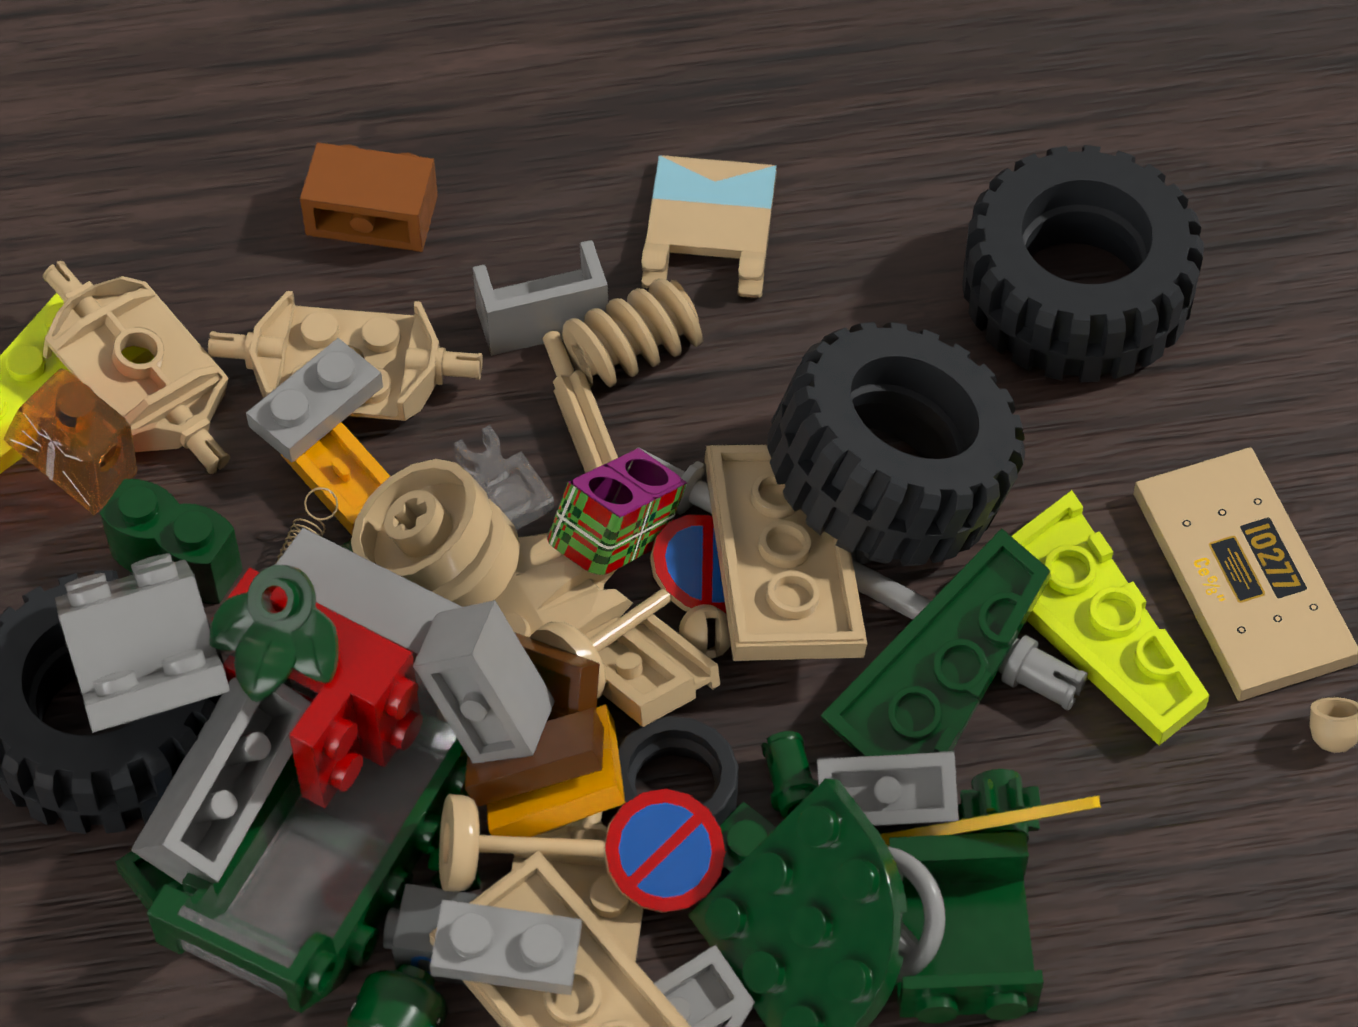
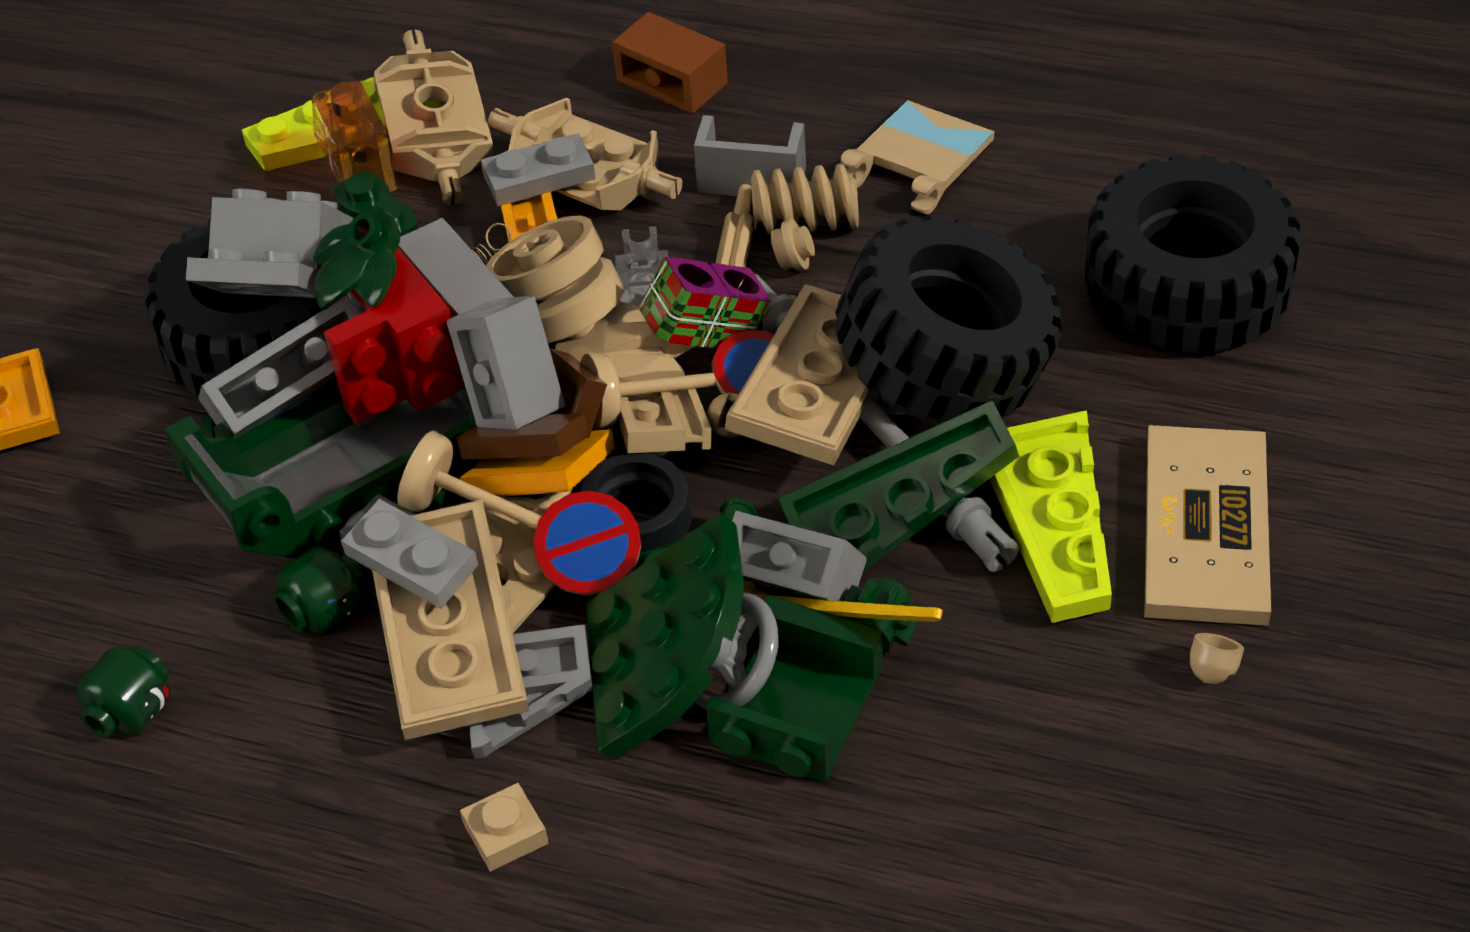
camera: 30 degrees right, 10 degrees down
(652, 395) = (792, 246): none -> tan plate

